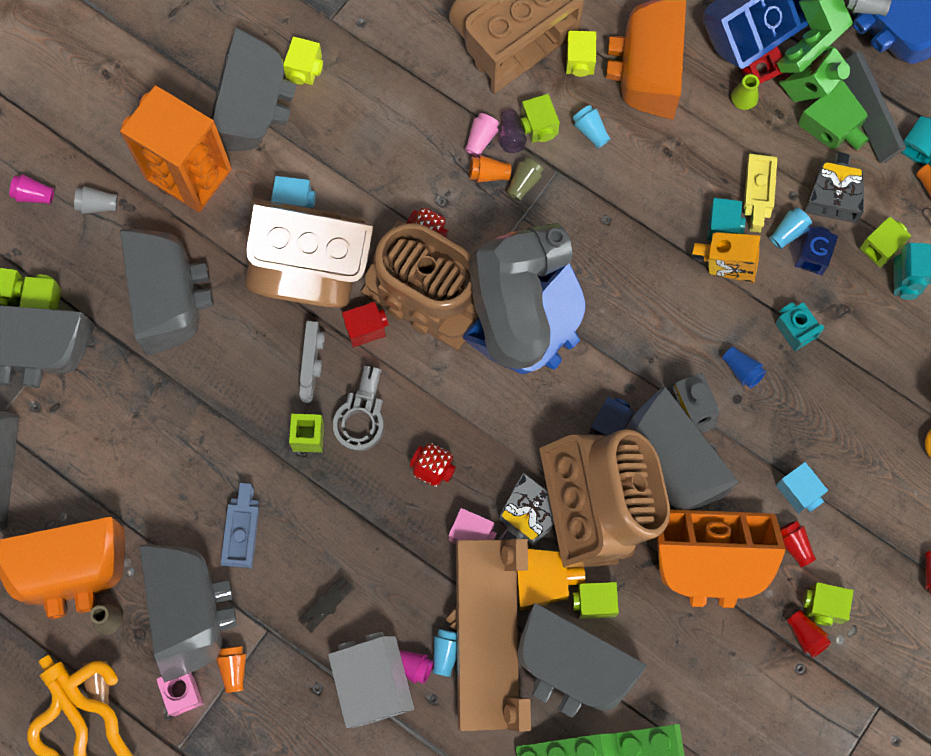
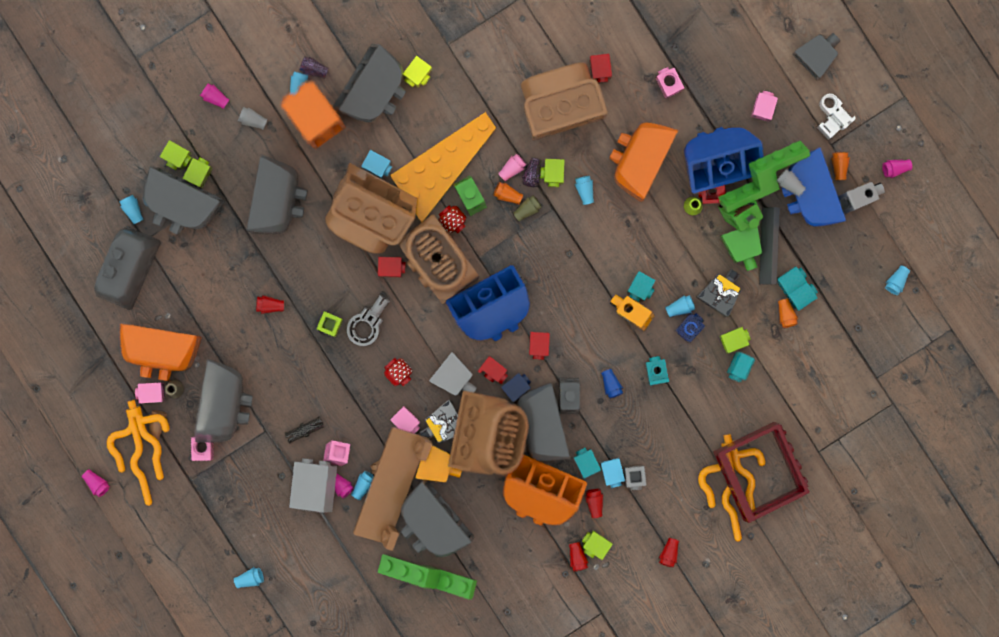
camera: 20 degrees right, 15 degrees up
(71, 637) = (150, 392): none -> bright pink brick
(207, 442) = (268, 305): none -> red cone
(232, 667) = (236, 446): orange cone -> none
(241, 529) = (270, 366): sand blue hinge -> none
(311, 366) = (348, 281): light grey hinge -> none
(382, 169) = (438, 168): none -> light orange wing
(388, 615) = (336, 453): none -> bright pink brick
(435, 186) = (470, 195): none -> bright green torso
(511, 294) = (479, 295): dark grey piece -> none
(513, 440) = (453, 376): none -> light grey torso
(569, 410) = (493, 370): none -> red brick
(581, 53) = (598, 137): neon yellow brick -> none
(596, 600) = (462, 490): lime brick -> none
(618, 351) = (539, 345): none -> red brick
(759, 189) = (673, 273): light yellow hinge -> none
(760, 488) = (586, 462): none -> teal brick
(840, 480) = (635, 477): none -> light grey brick

